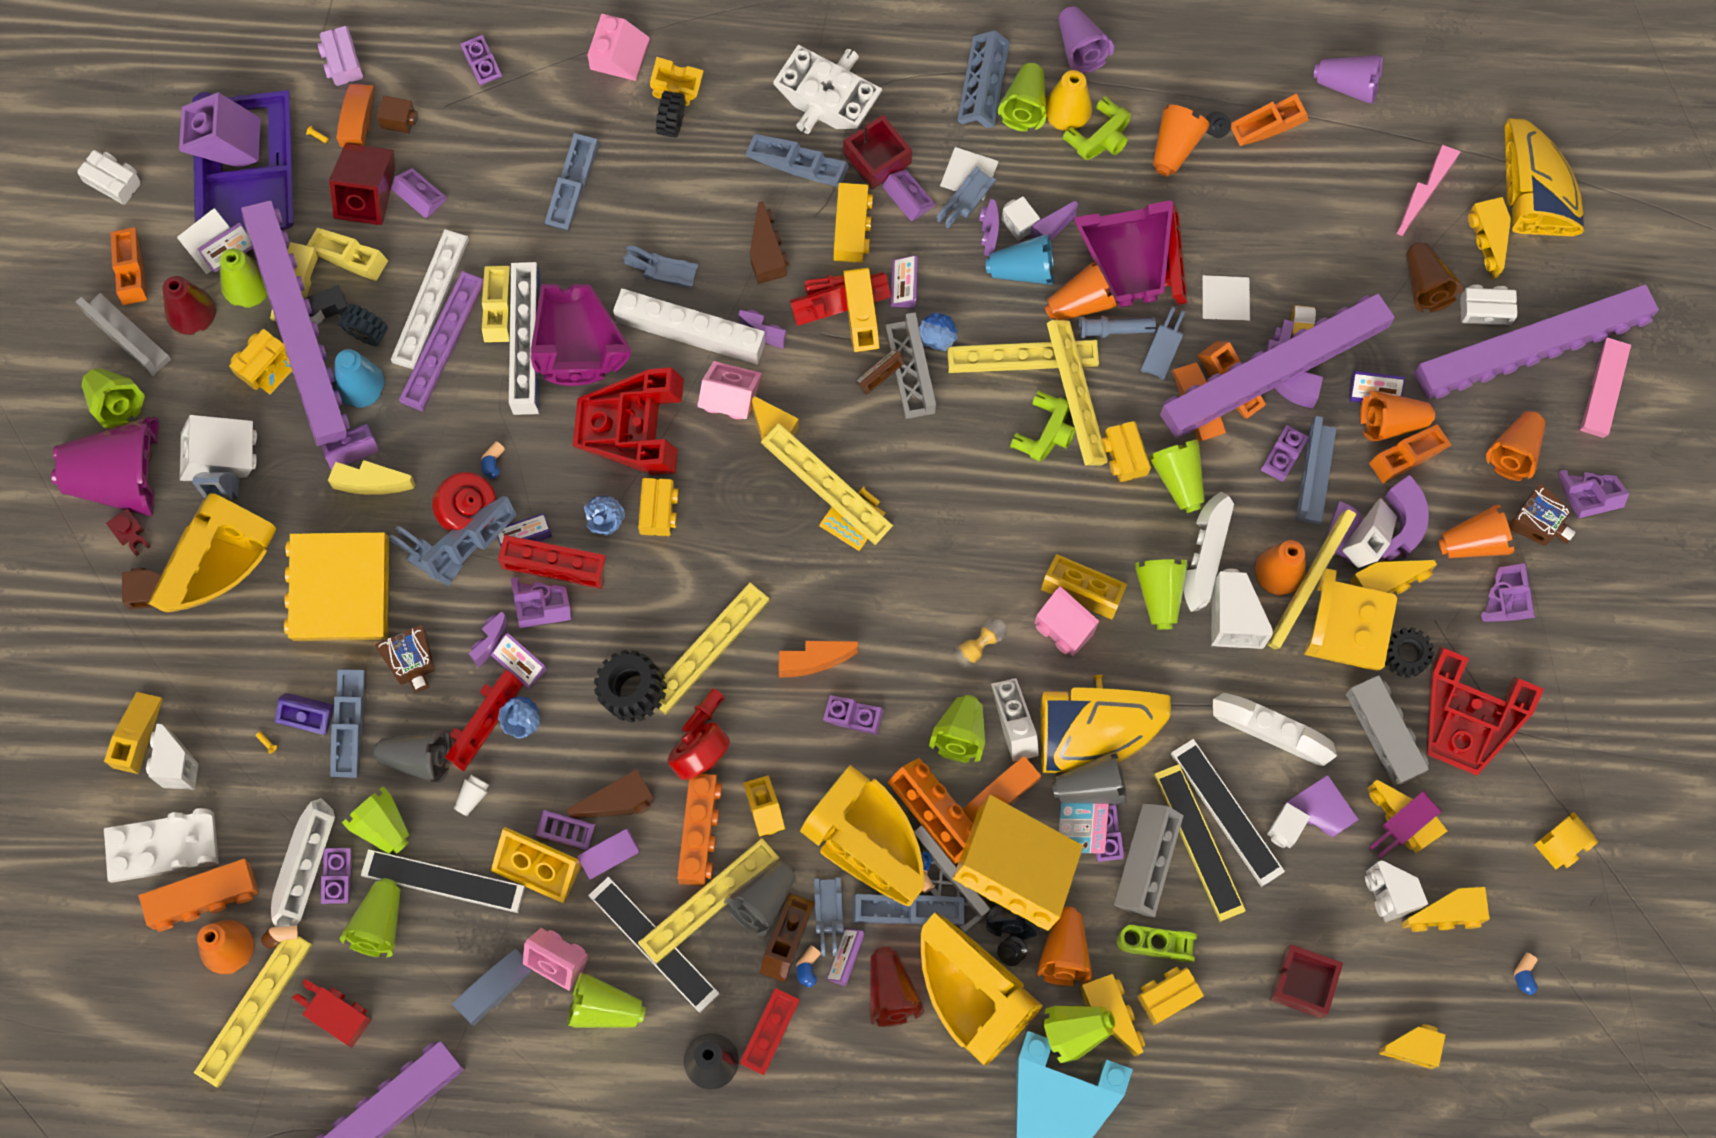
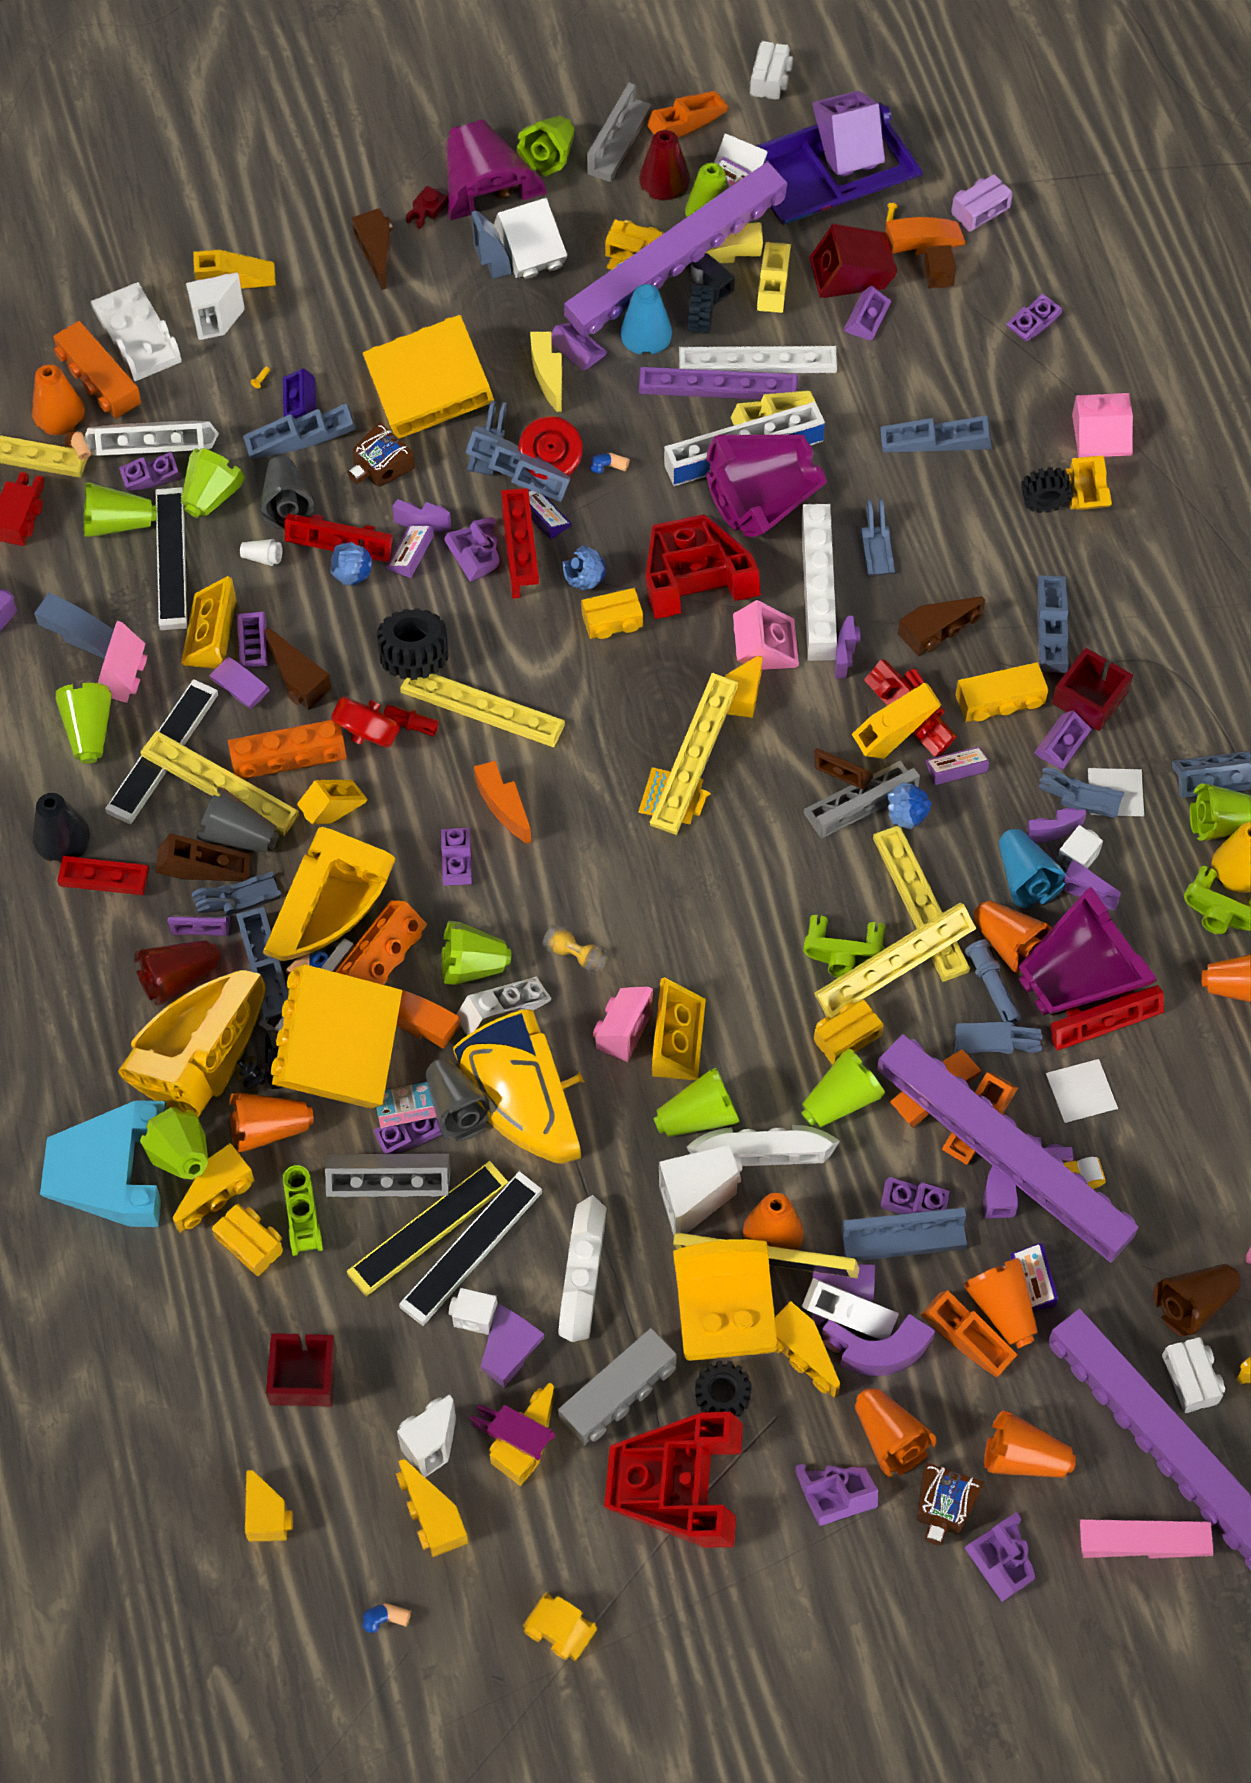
camera: 75 degrees right, 10 degrees down
(212, 555) = (416, 263): yellow panel -> none
(804, 967) = (179, 887): arm -> none
(826, 90) = (1144, 619): white slope -> none

